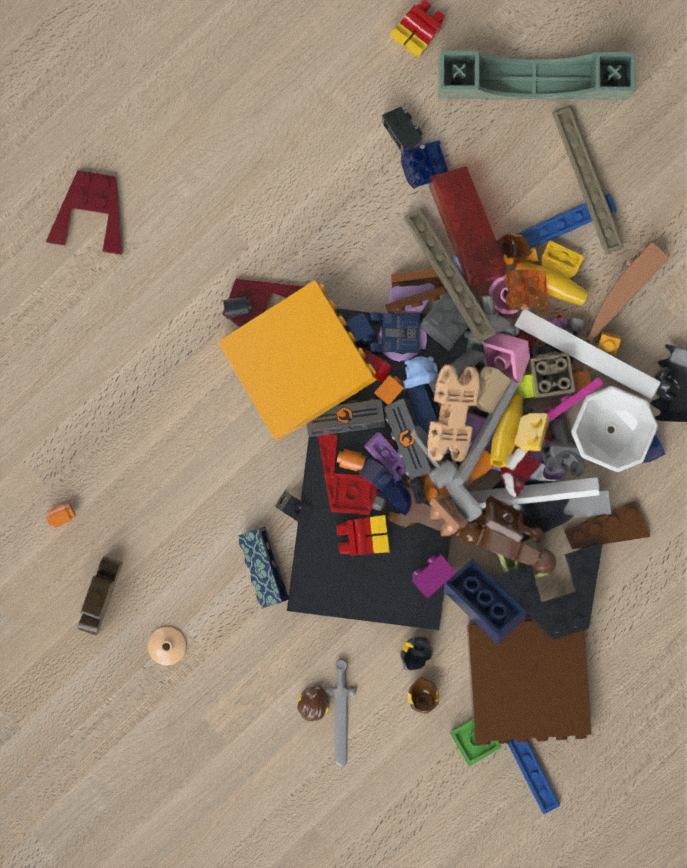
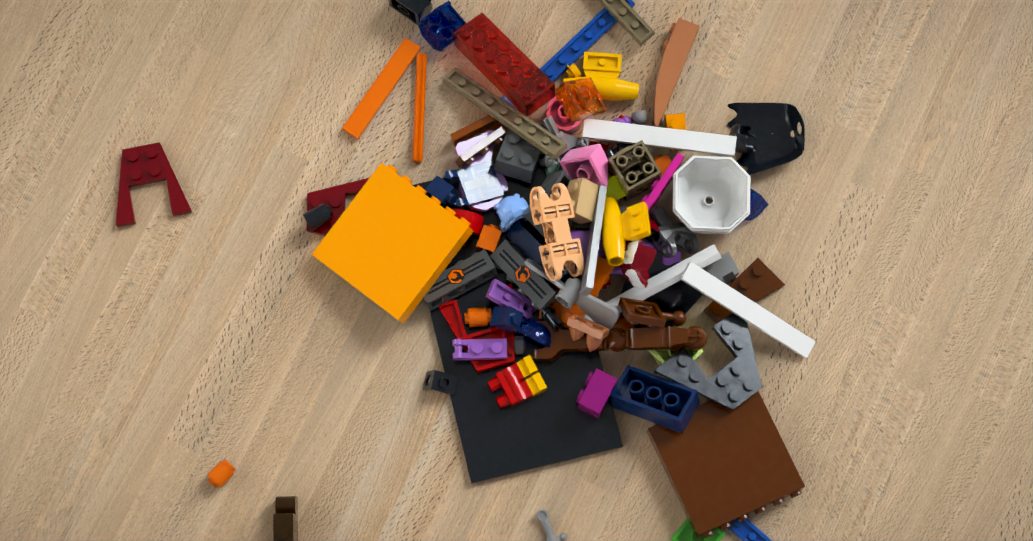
camera: 30 degrees left, 10 degrees down
(263, 567) = (433, 449): dark blue brick -> none
(341, 492) = (480, 349): none -> medium lavender plate
(343, 202) = (381, 88): none -> orange tile
(372, 235) = (419, 108): none -> orange axle
(416, 653) = (609, 474): black hair -> none
(423, 695) = (632, 512): reddish brown hair -> none
(514, 248) = (555, 68): reddish brown hair -> none
(604, 550) = (747, 309): none -> white tile

